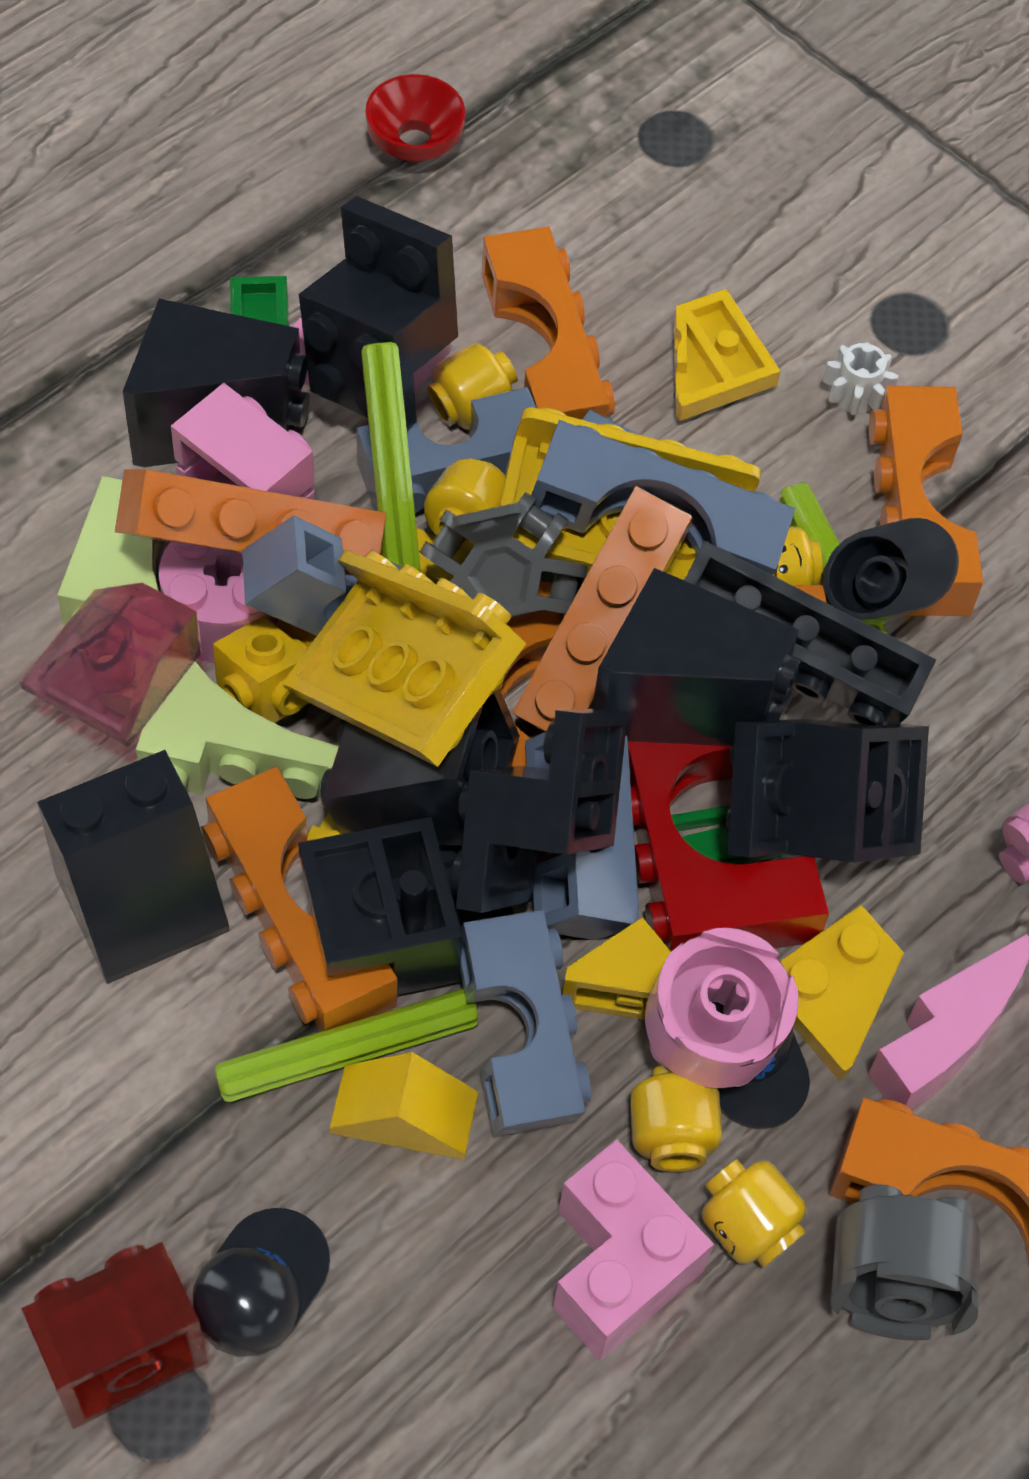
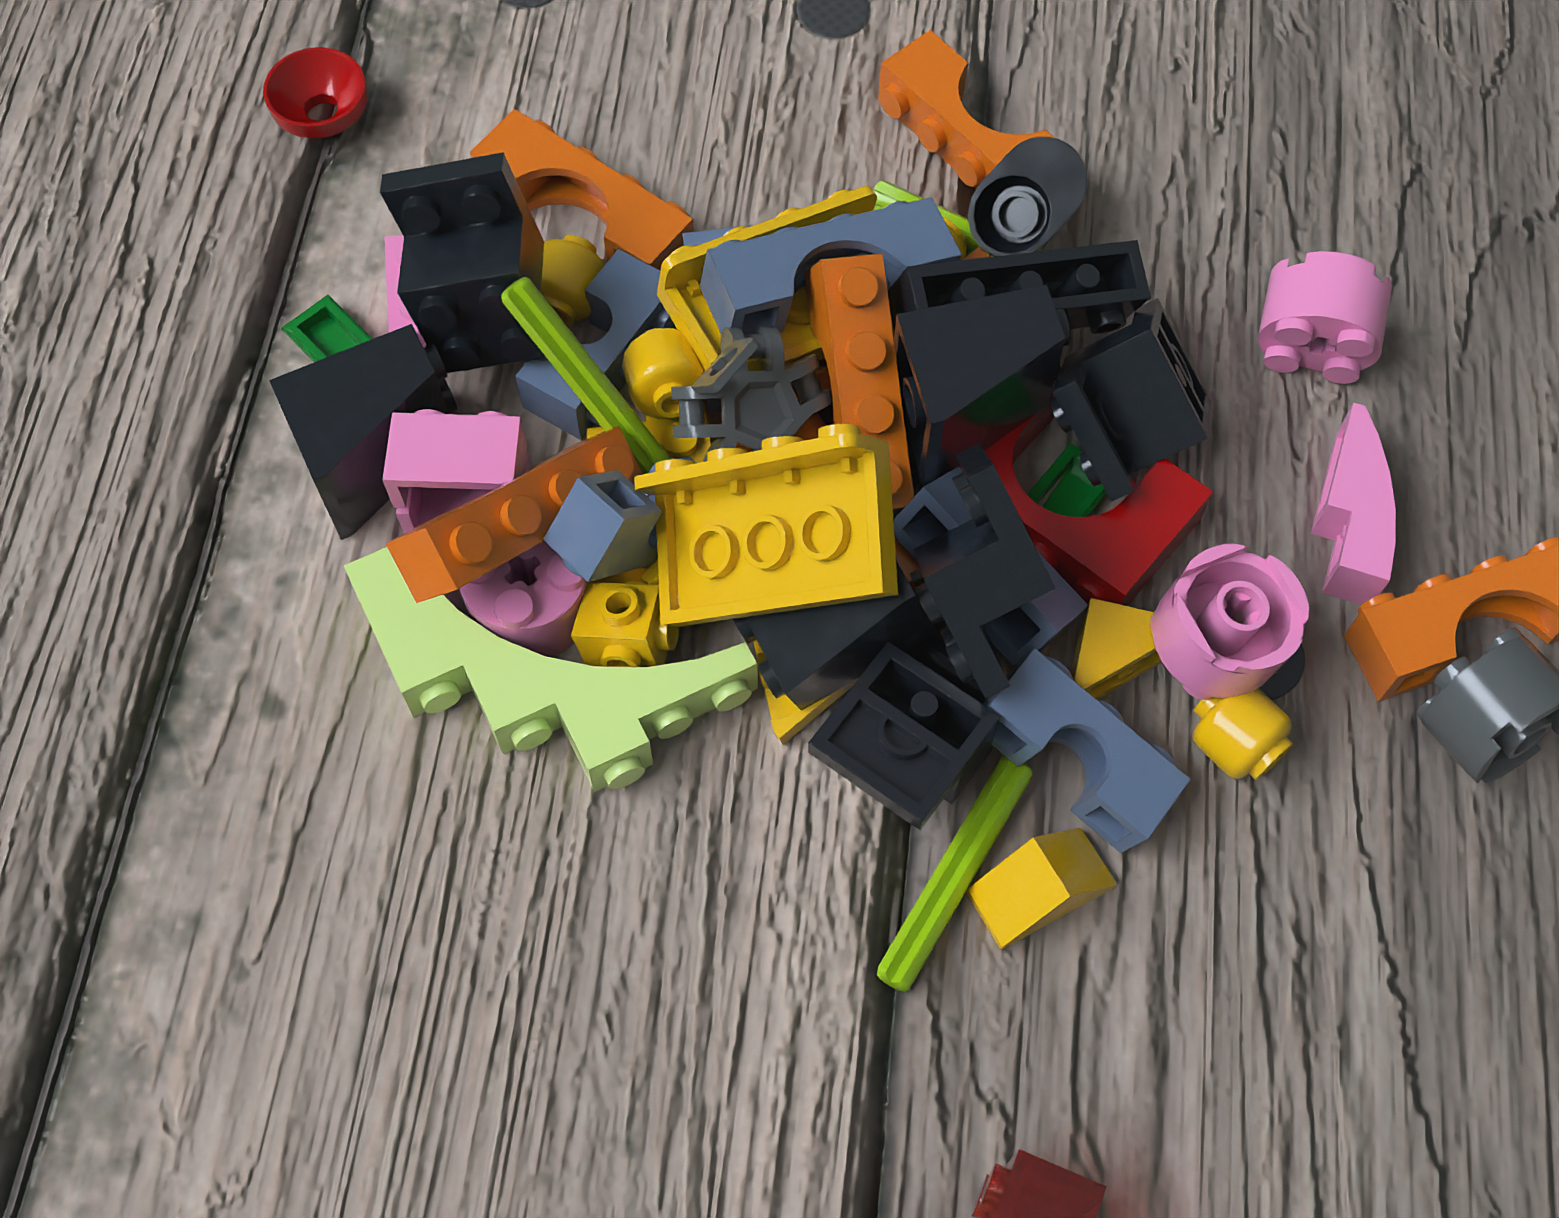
camera: 35 degrees left, 5 degrees up
(117, 659) = (506, 707): clear pink slope -> none
(133, 865) = (680, 865): black slope -> none
(258, 834) = (739, 765): orange arch -> none
(261, 1282) = (1064, 1103): black cap -> none
(640, 1246) = (1317, 851): bright pink brick -> none
(717, 356) = (724, 127): yellow wing -> none
(753, 1212) = (1357, 756): yellow head -> none
(841, 986) = (1251, 515): yellow wing -> none
(859, 377) = (846, 72): white gear -> none

